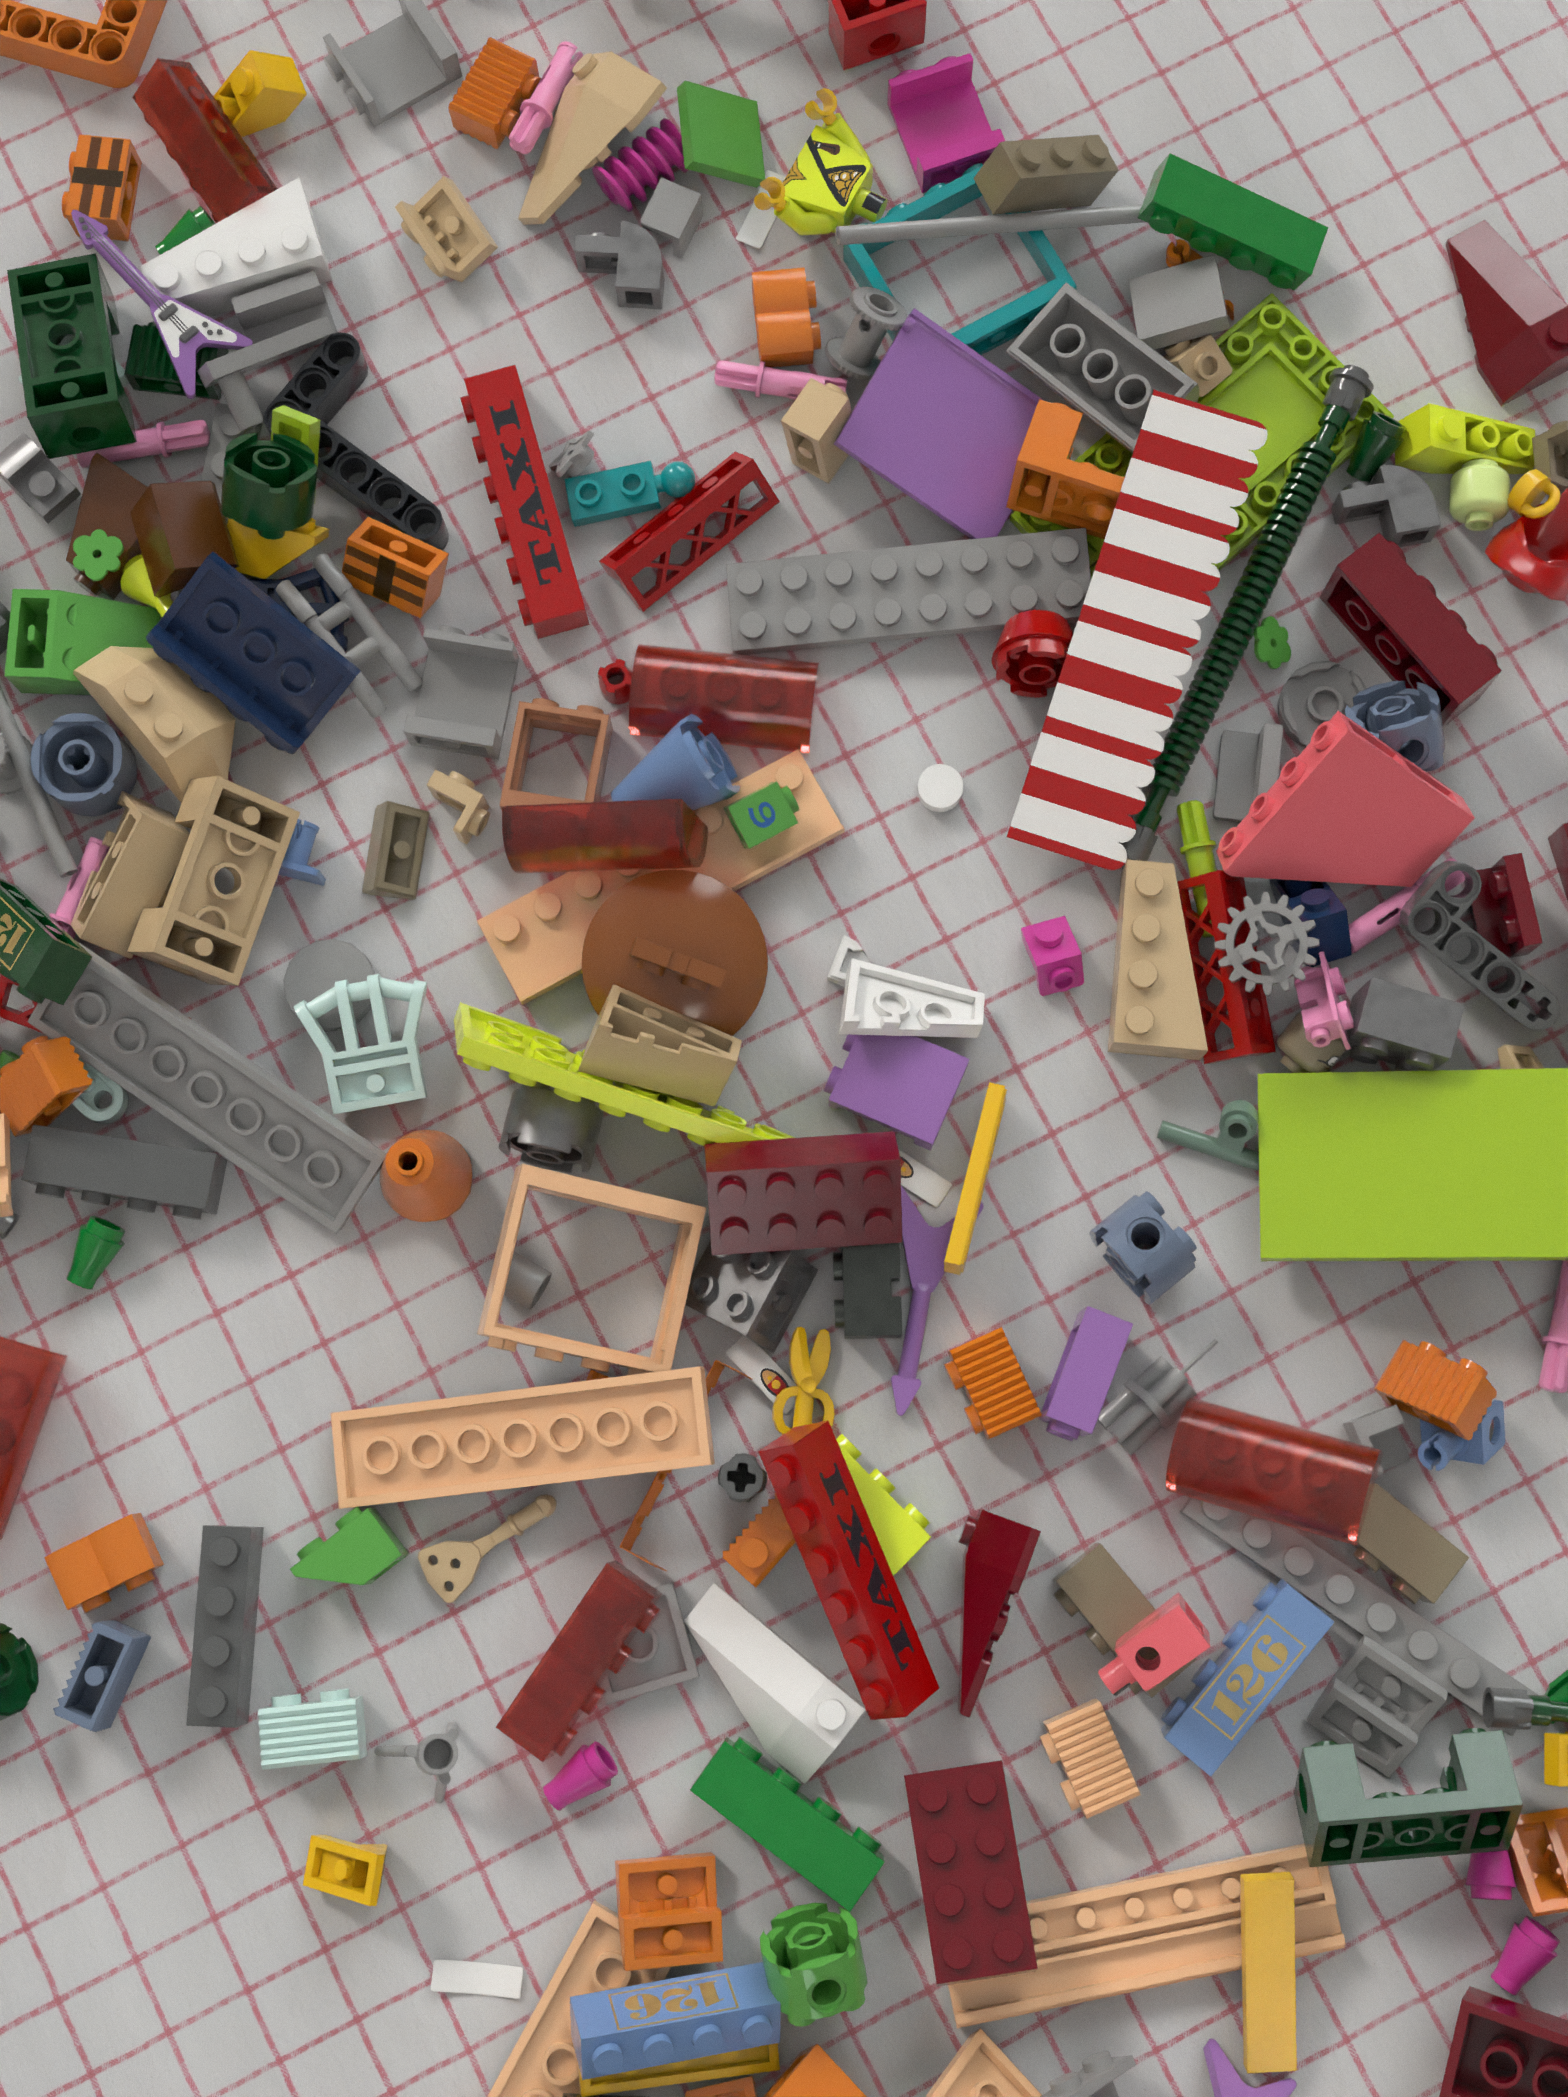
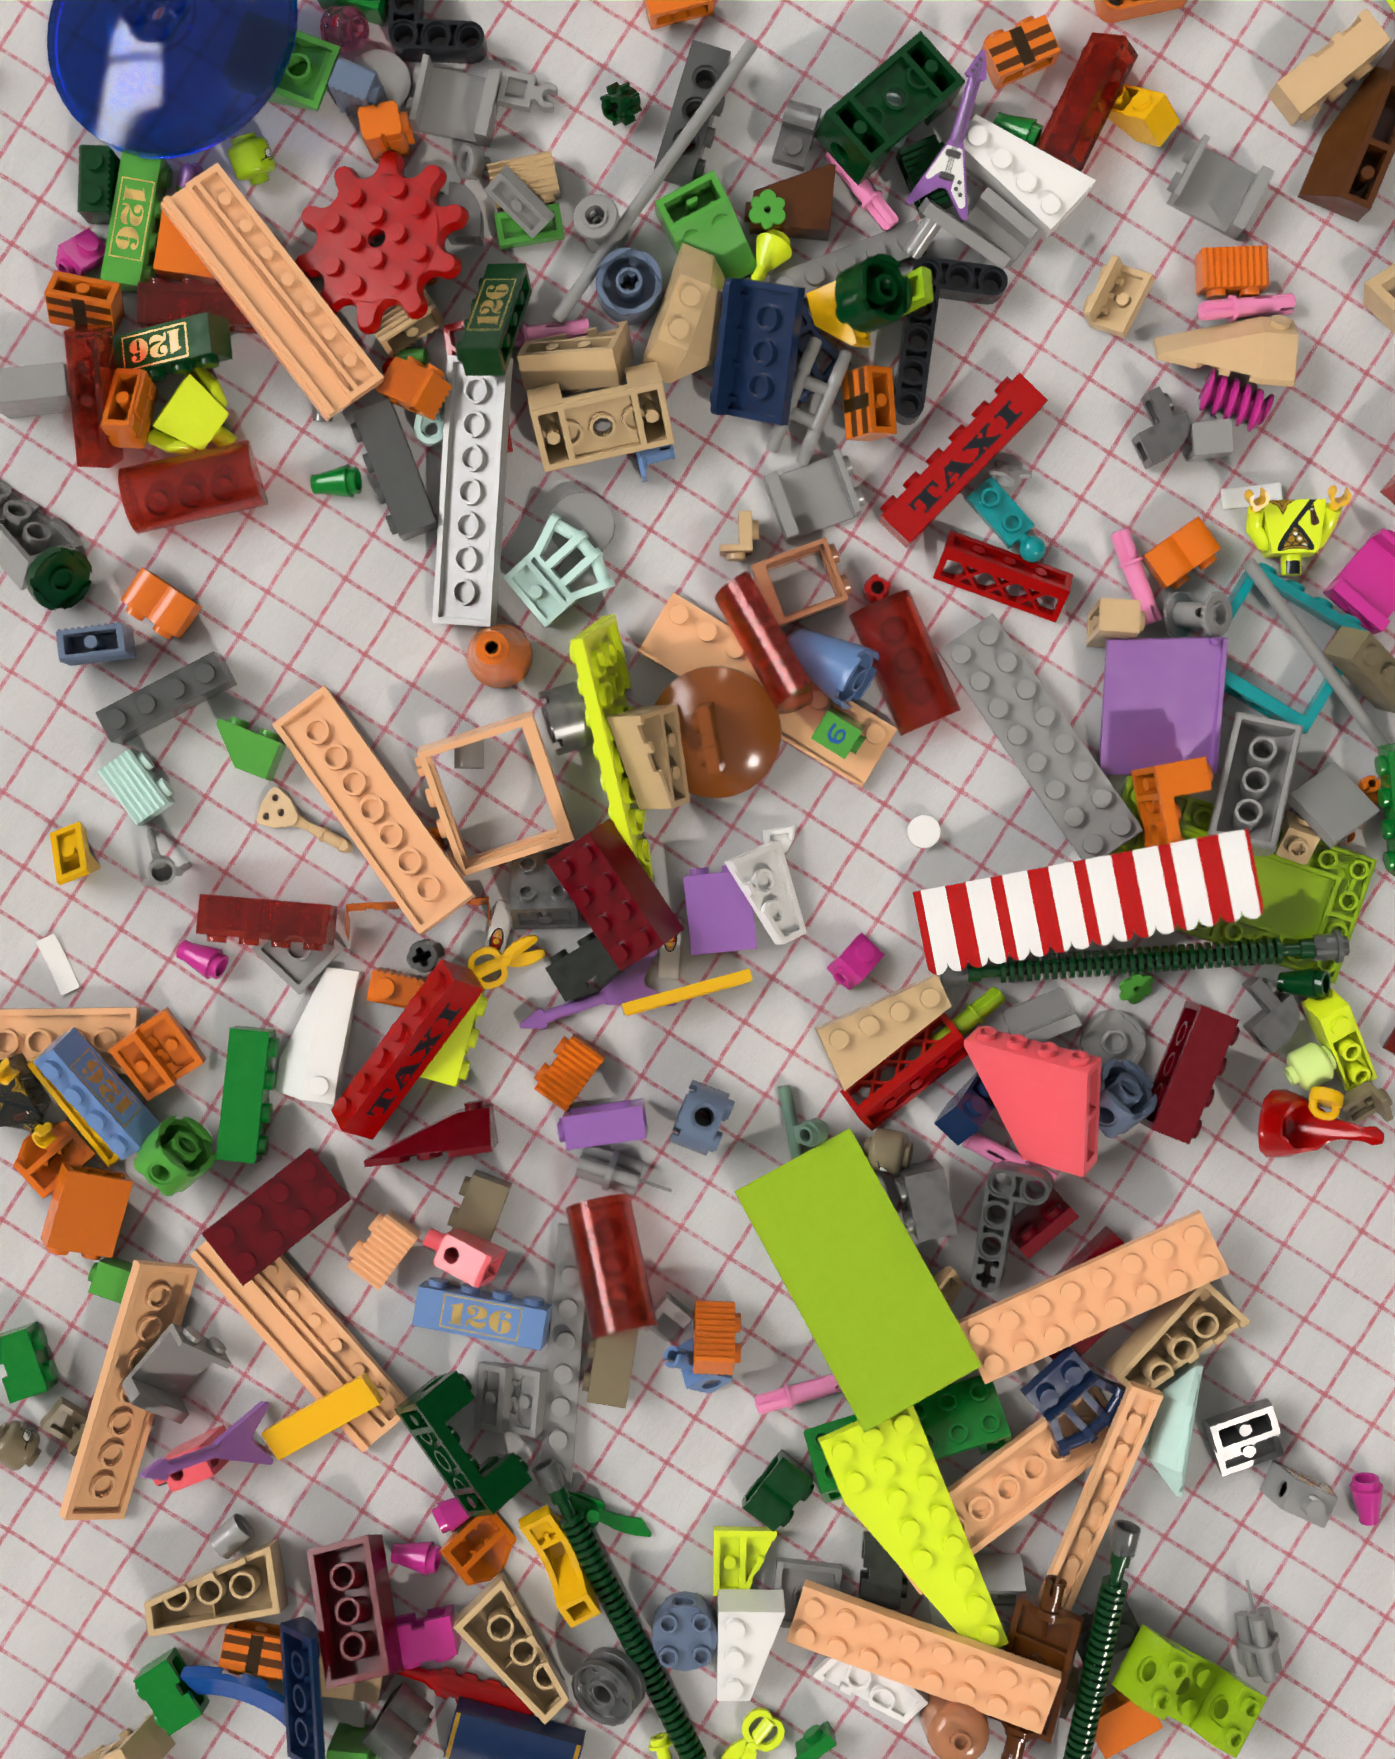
camera: 55 degrees right, 10 degrees up
(178, 530) = (810, 256): reddish brown slope -> none
(395, 851) = (689, 514): dark tan slope -> none
(720, 134) = (1285, 439): bright green tile -> none
(1032, 652) = (1042, 841): red cone -> none
(1288, 935) = (918, 1082): light grey gear -> none
(1331, 1017) = (907, 1155): bright pink hinge -> none

